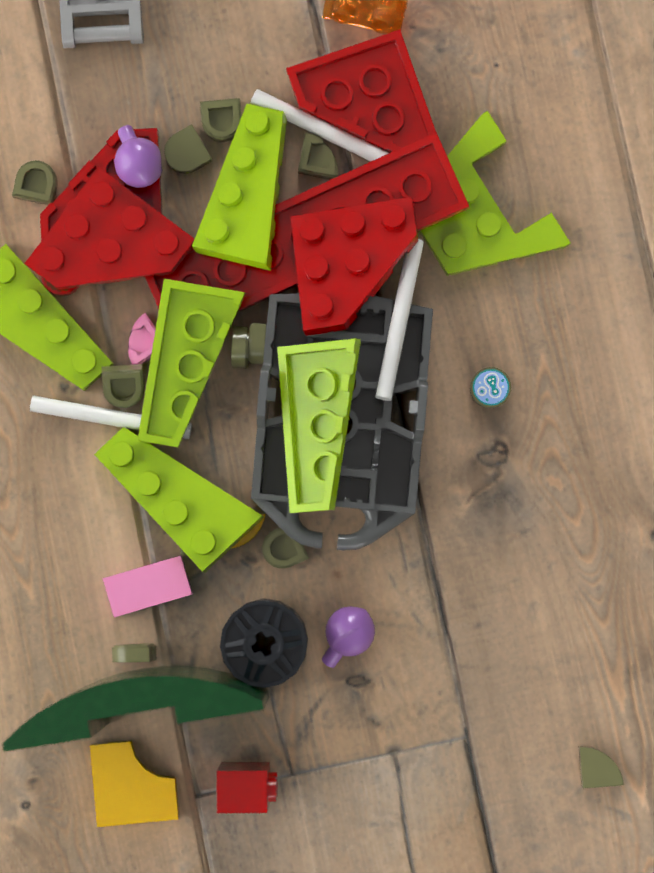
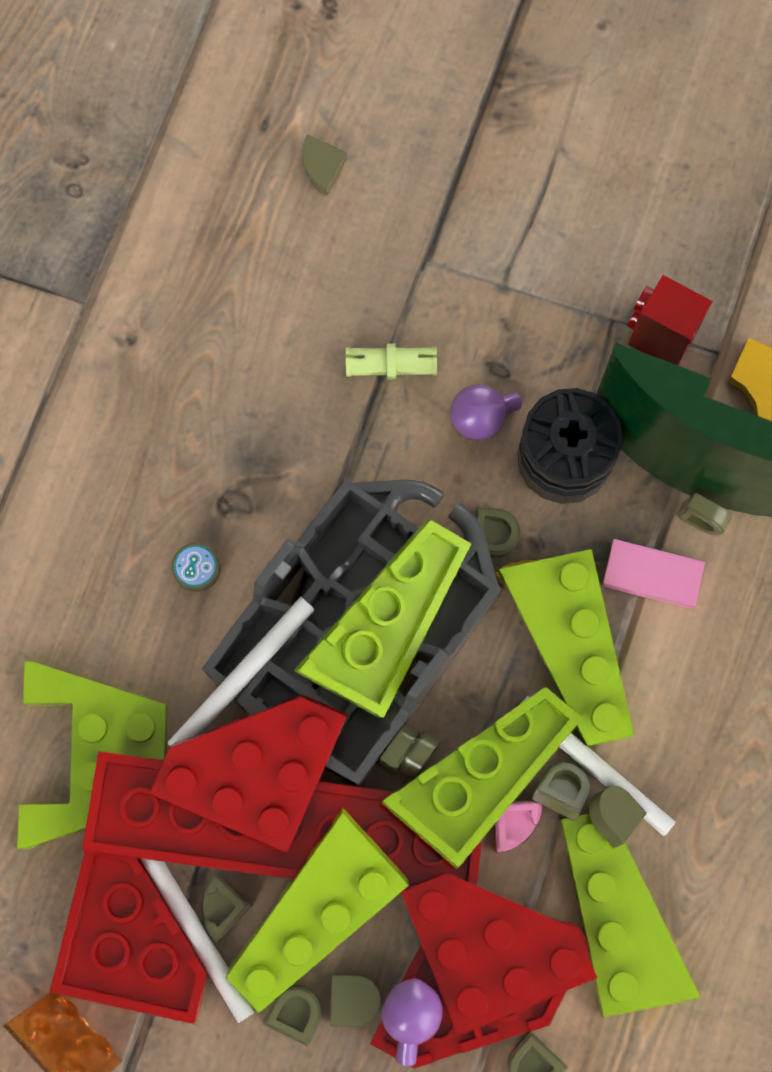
camera: 150 degrees left, 10 degrees down
(75, 387) = (615, 814): none -> olive tile
(442, 635) = (391, 361): none -> yellowish green pin

